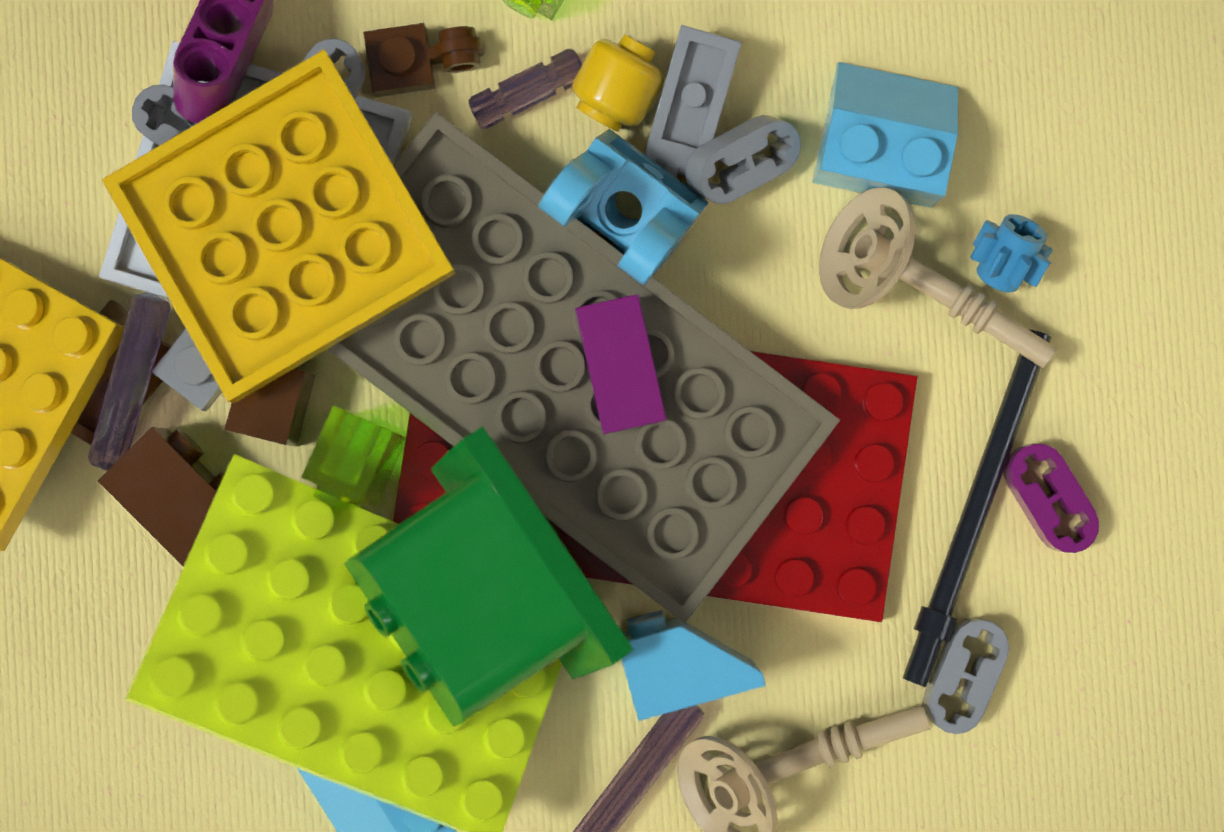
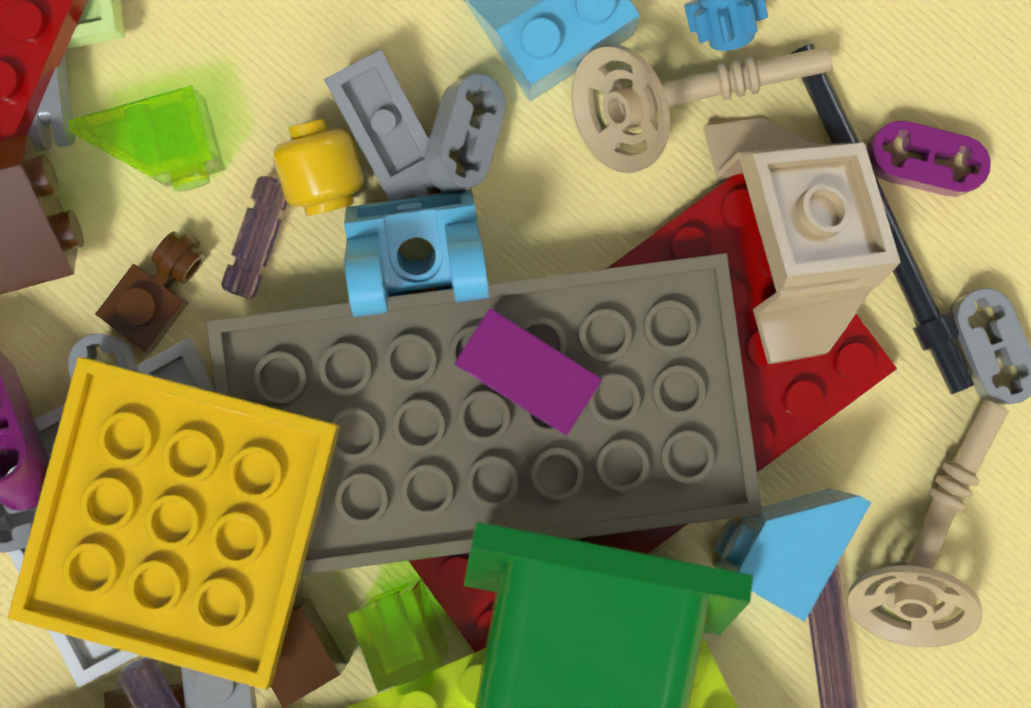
camera: 50 degrees left, 0 degrees up
(921, 465) = (818, 229): none -> tan piece

